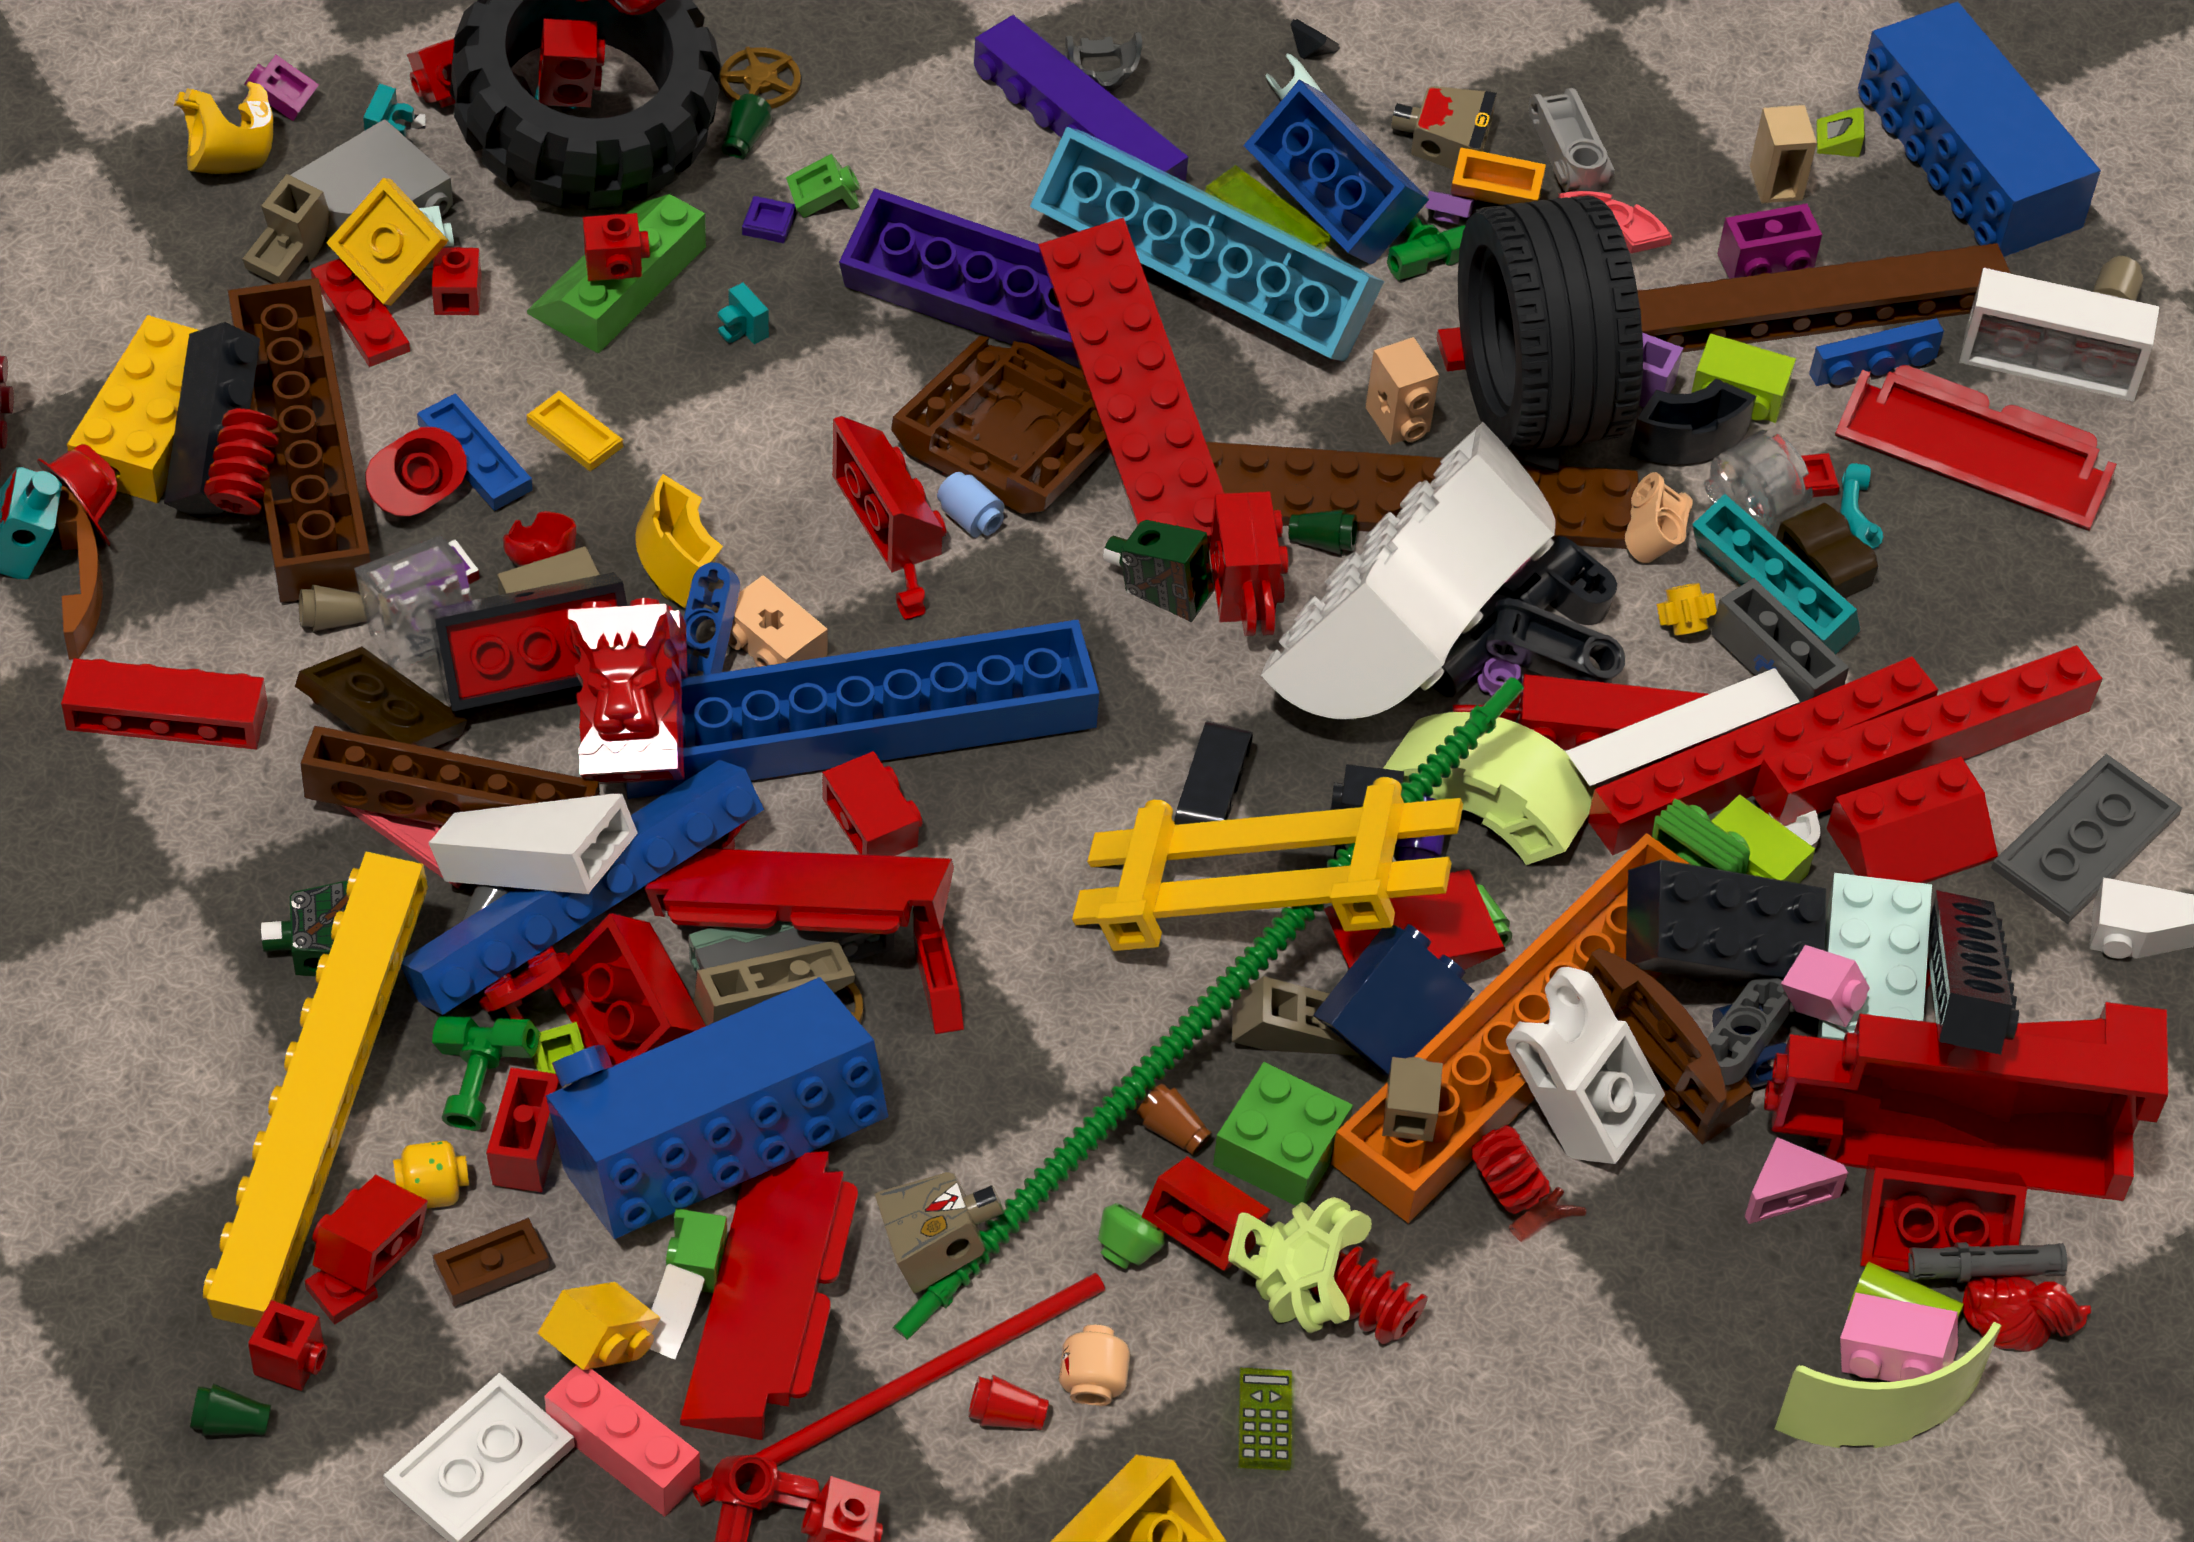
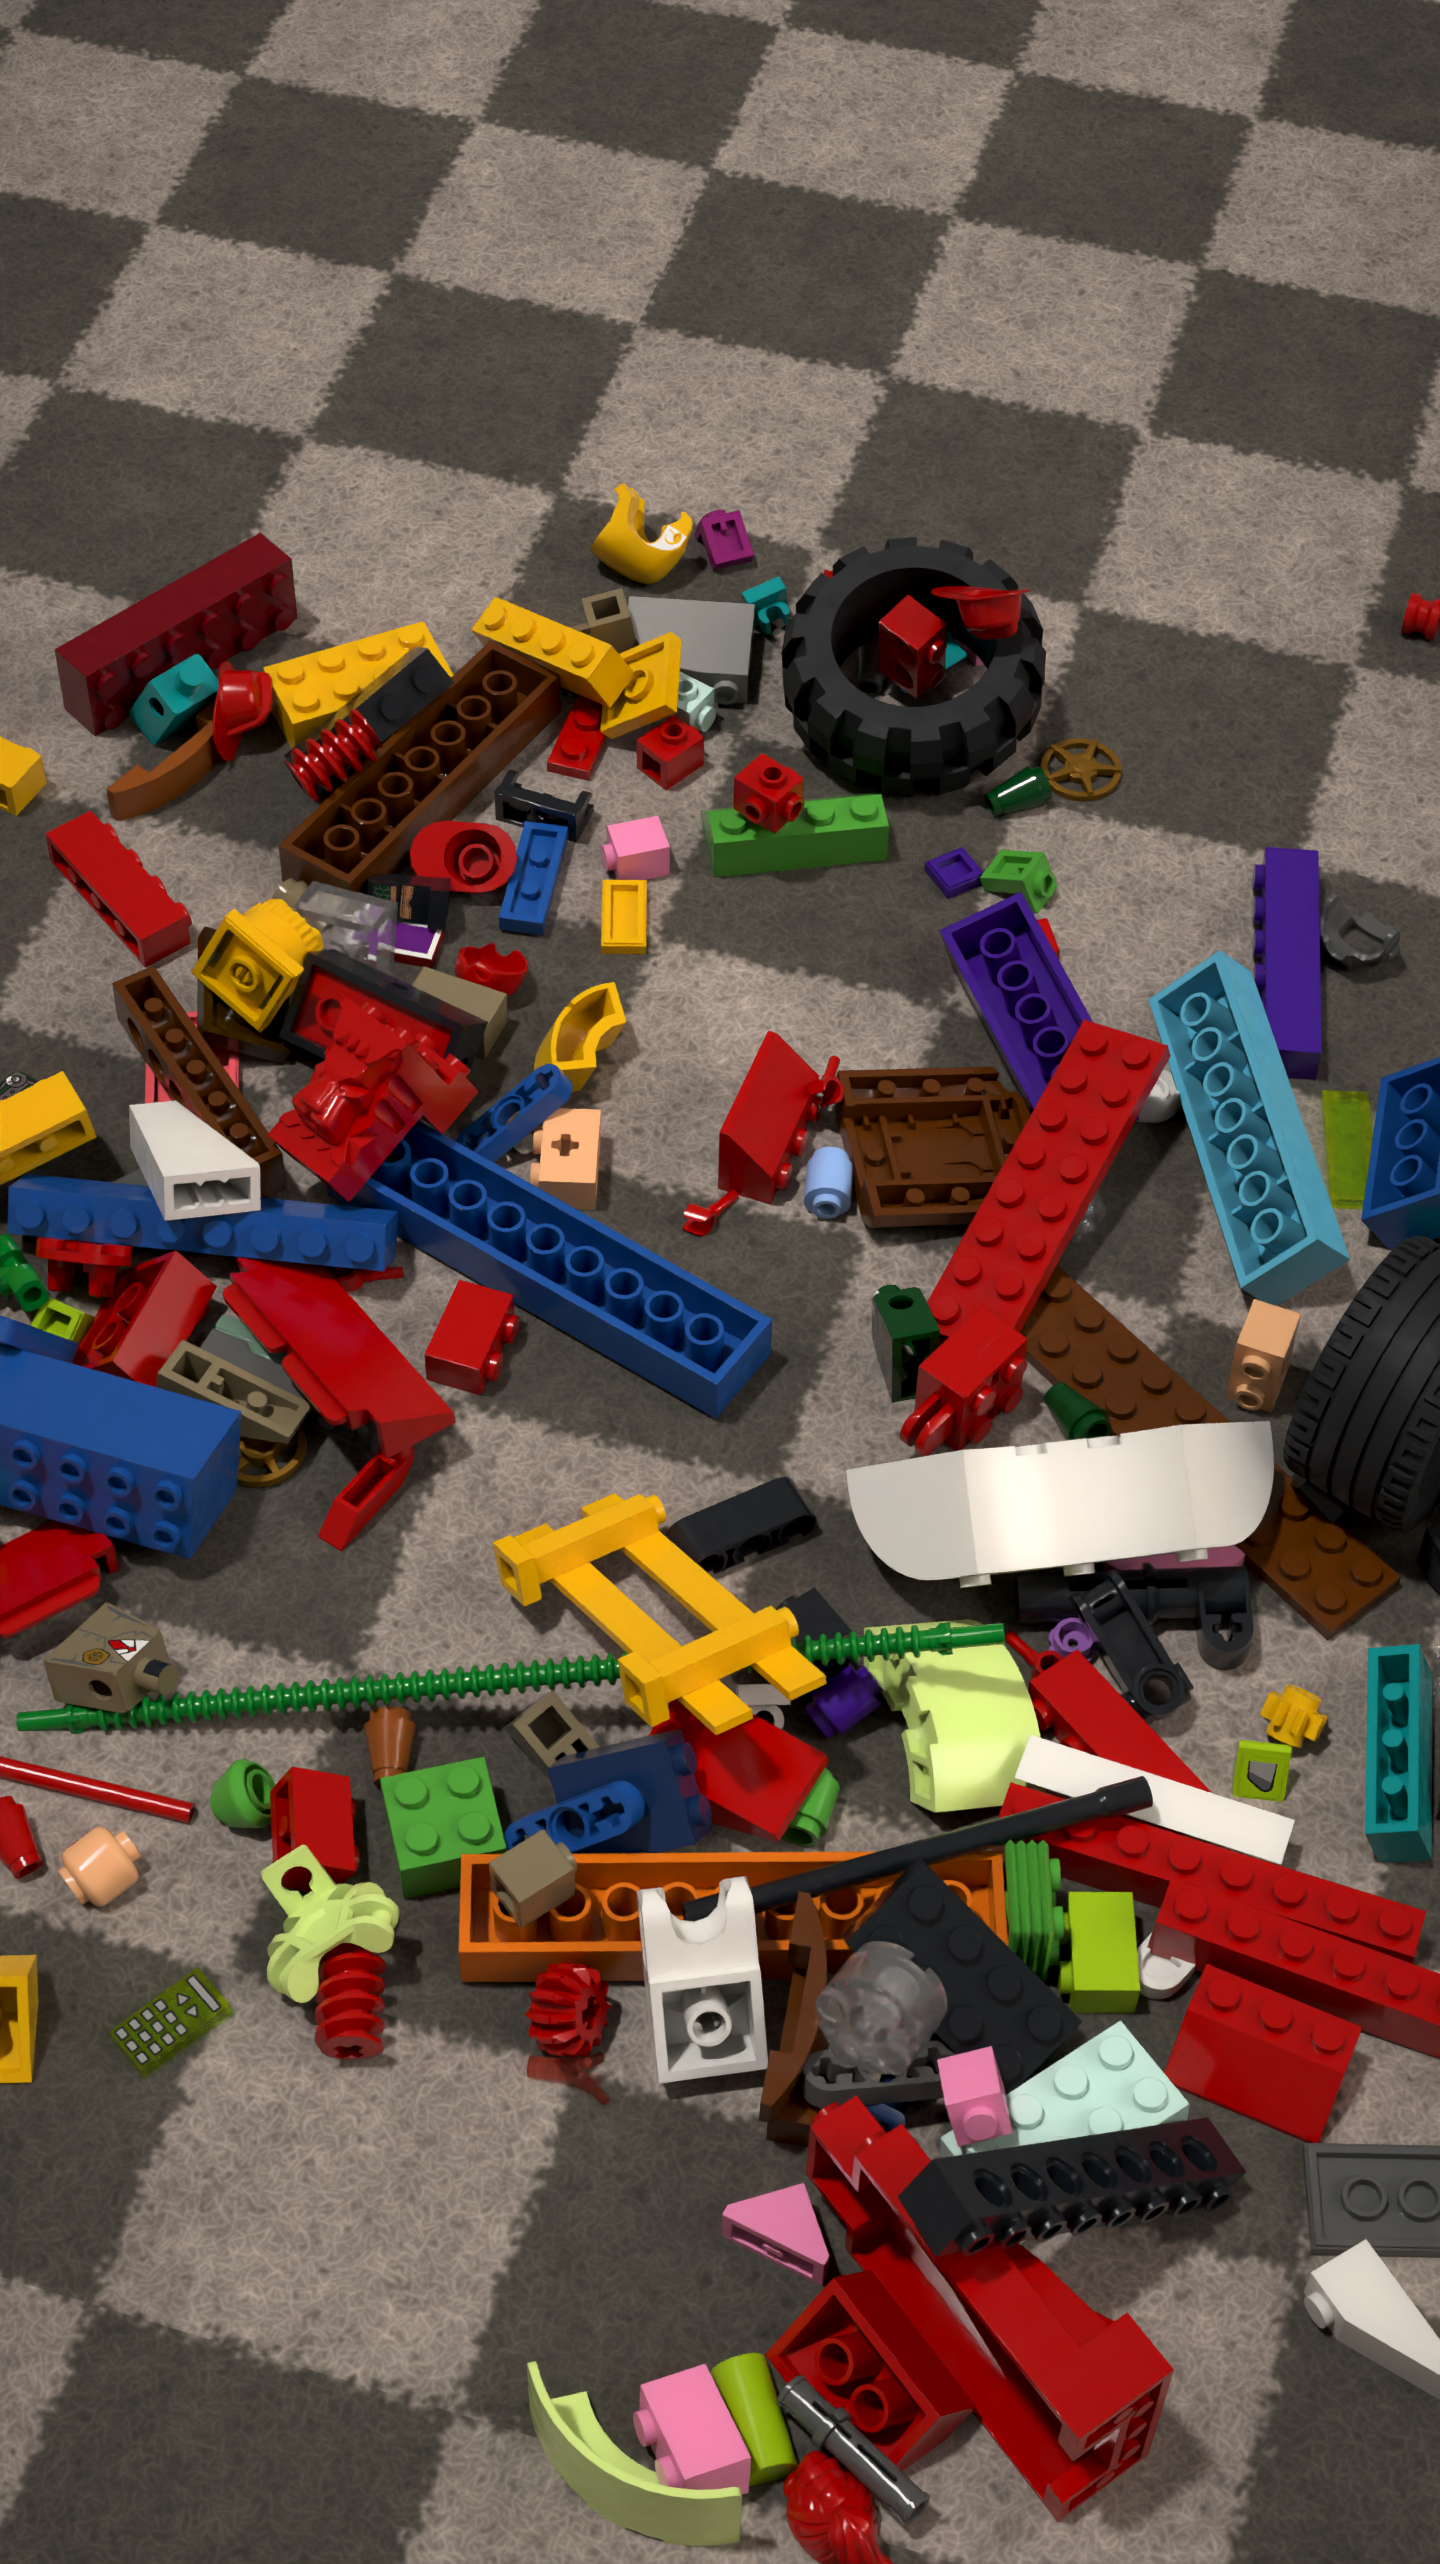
camera: 50 degrees right, 0 degrees up
(331, 252) = (582, 661): none -> yellow brick
(393, 658) = (257, 959): none -> yellow piece
(403, 401) = (518, 805): none -> black hinge
(414, 525) = (418, 897): none -> black leg
(529, 371) = (637, 850): none -> bright pink brick
(744, 316) = (836, 924): teal tile -> none
(903, 436) = (828, 1084): none -> red hand
(1417, 1025) = (587, 1807): none -> blue beam
(1657, 519) = (1368, 1622): light nougat piece -> none
(1673, 749) = (1103, 1803): none -> black piece
(1706, 660) = (1261, 1770): none -> lime slope
(1724, 979) = (880, 2009): none -> clear brick
(1771, 637) = (1326, 1803): dark grey brick -> none

